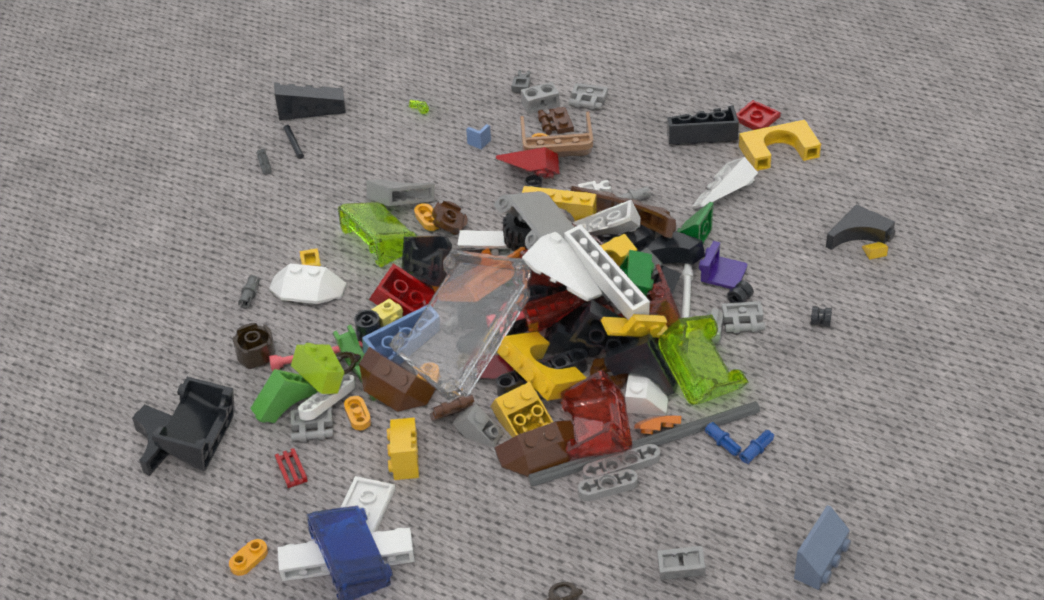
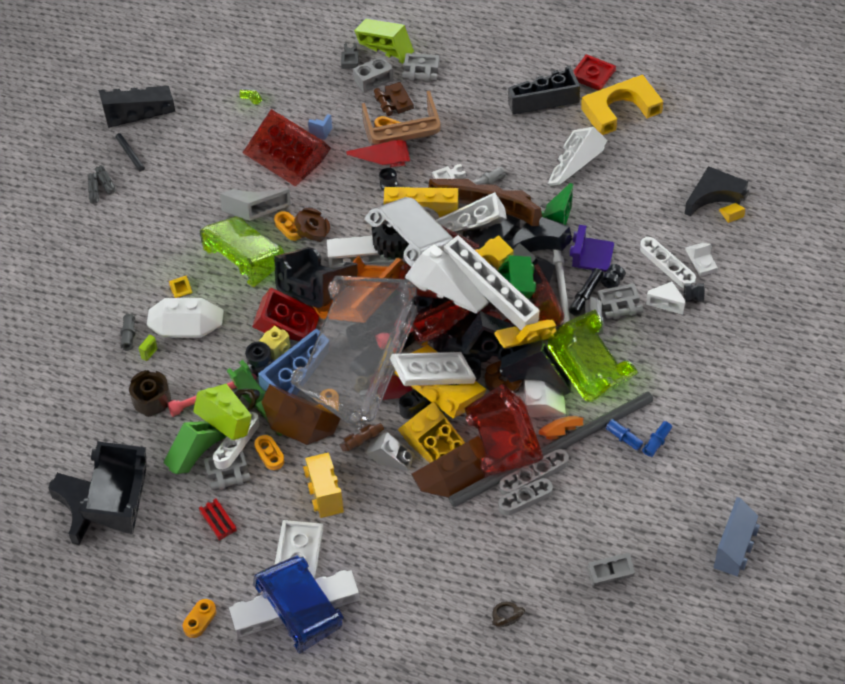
camera: 10 degrees left, 10 degrees up
(250, 167) = (93, 189): none -> dark grey axle
(263, 307) = (148, 347): none -> lime tile
(442, 151) = (286, 148): none -> clear red slope
(534, 350) = (432, 368): none -> white tile
(558, 67) = (386, 37): none -> lime wedge
(712, 301) = (585, 292): none -> black pin
(791, 318) = (666, 298): none -> white slope
(802, 286) = (664, 264): none -> white beam
(836, 288) = (702, 258): none -> white slope

